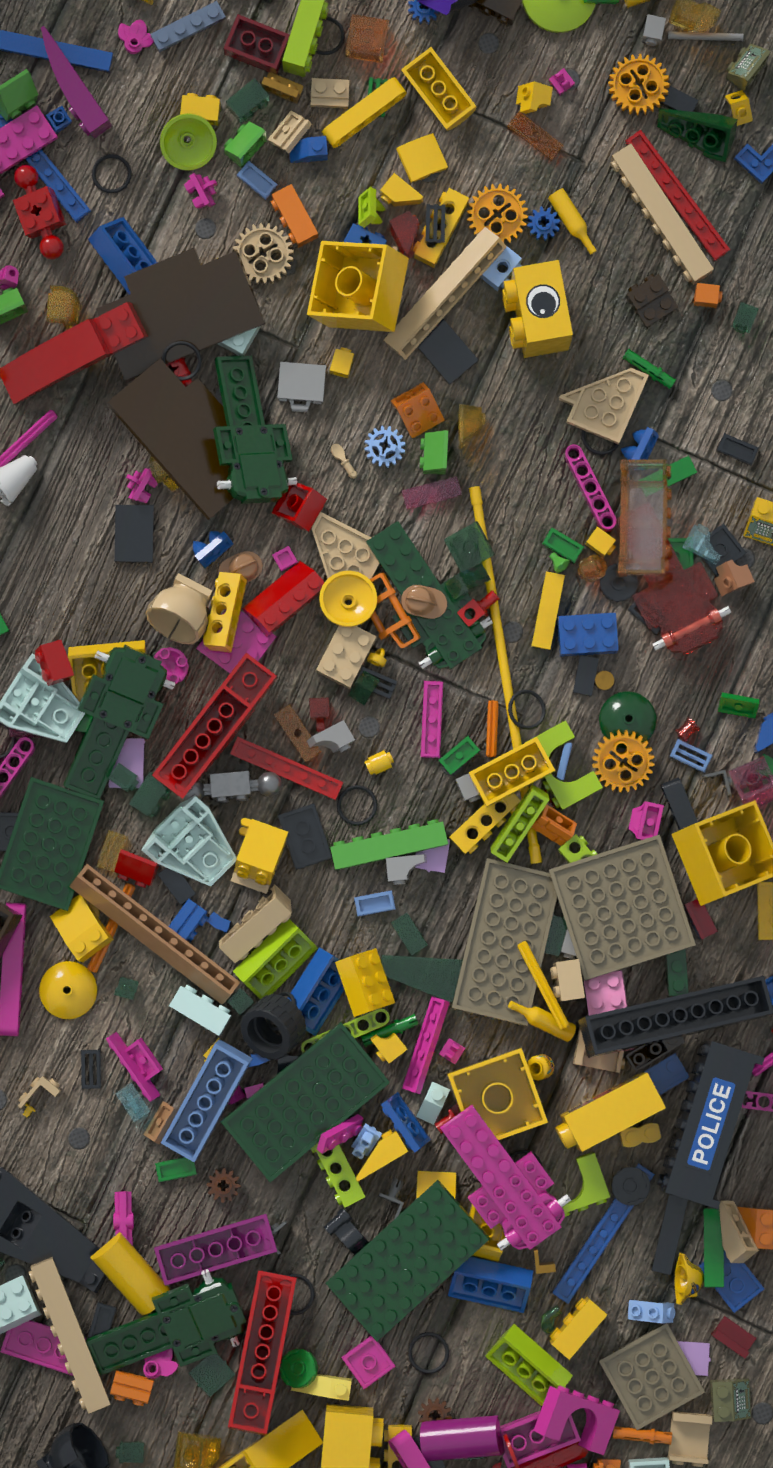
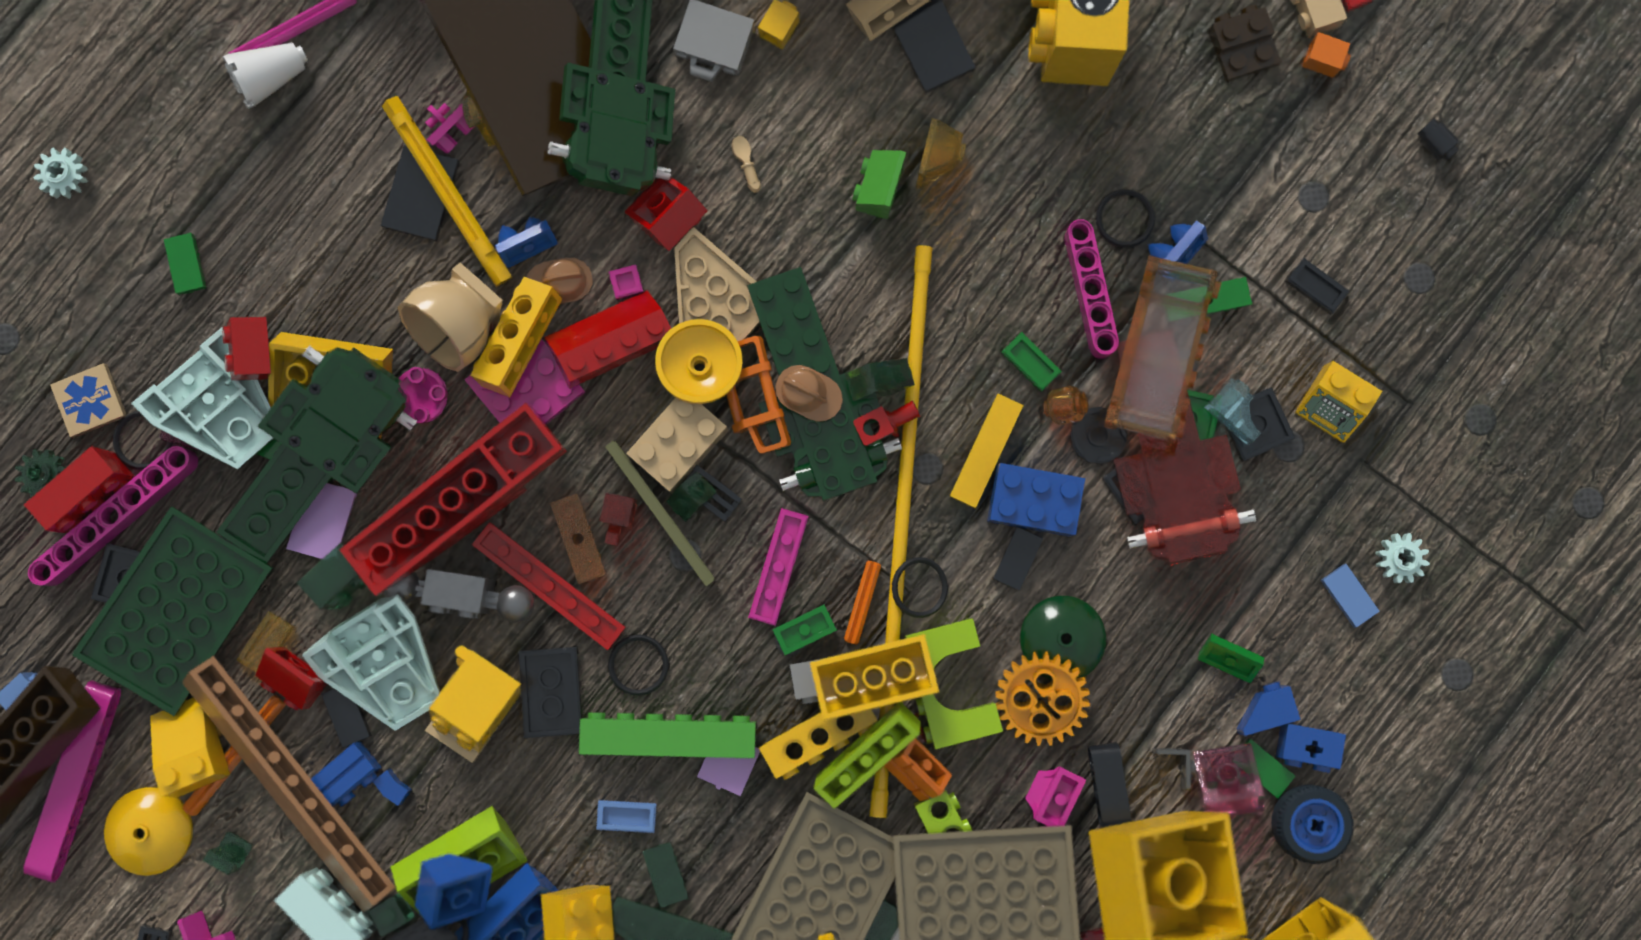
camera: 15 degrees right, 0 degrees up
(124, 778) = (308, 541): clear green brick -> none
(153, 528) = (446, 191): none -> yellow piece
(256, 925) = (443, 807): tan wedge -> none
(278, 971) = (452, 889): none -> blue slope
(335, 738) = (630, 559): light grey arch -> none
(349, 705) = (660, 513): none -> olive tile
(377, 658) = (721, 458): yellow tile -> none
(379, 762) = (685, 611): yellow brick -> none
(393, 449) = (819, 163): light blue gear -> none
(400, 867) = (677, 773): light grey arch -> none
(418, 410) = (871, 117): orange bracket -> none
(431, 493) = (860, 240): clear pink plate -> none
(469, 546) = (895, 330): clear green plate -> none
(559, 563) = (1020, 387): bright green rock -> none
(564, 761) = (955, 677): medium blue tile -> none
(601, 542) = (1087, 371): yellow brick -> none
(604, 680) = (1043, 572): pearl gold tile -> none
(606, 404) = (1143, 175): tan wing -> none
(648, 368) = (1218, 140): green pin -> none
(687, 729) = (1147, 675): clear red bush -> none
(691, 764) = (1123, 698): medium blue tile -> none
(732, 577) = (1267, 469): nougat brick -> none
(744, 318) = (1373, 100): clear green brick -> none

